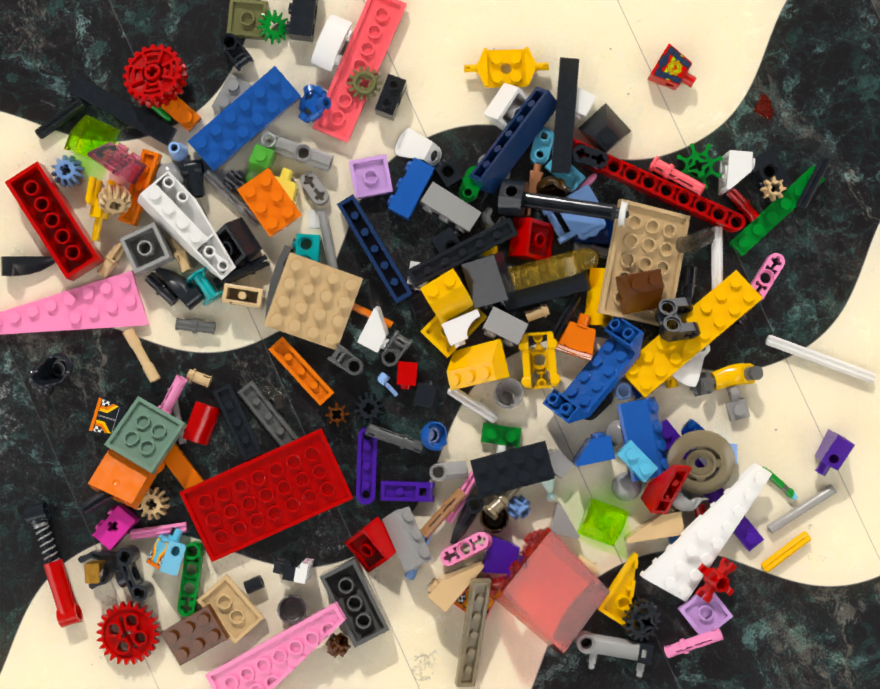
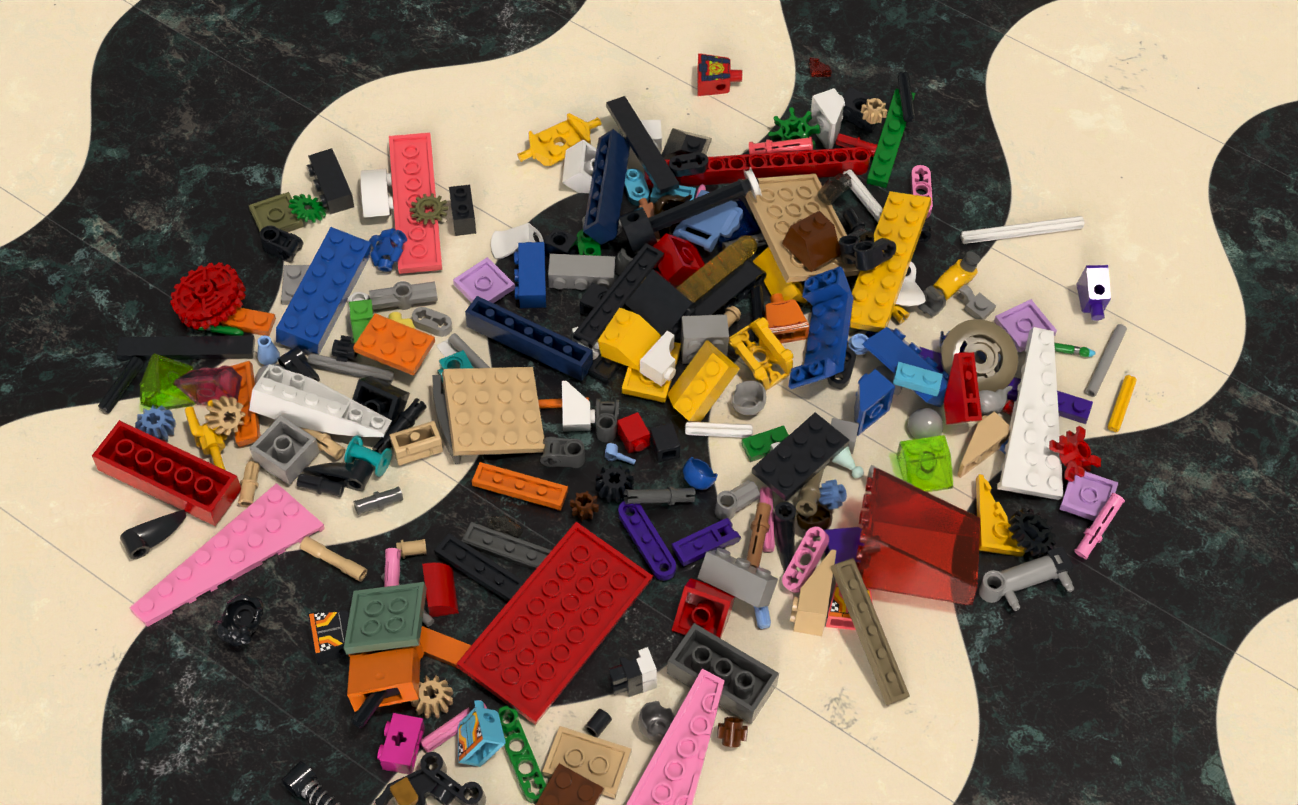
camera: 30 degrees left, 30 degrees down
(759, 446) = (1021, 320): none -> lavender plate

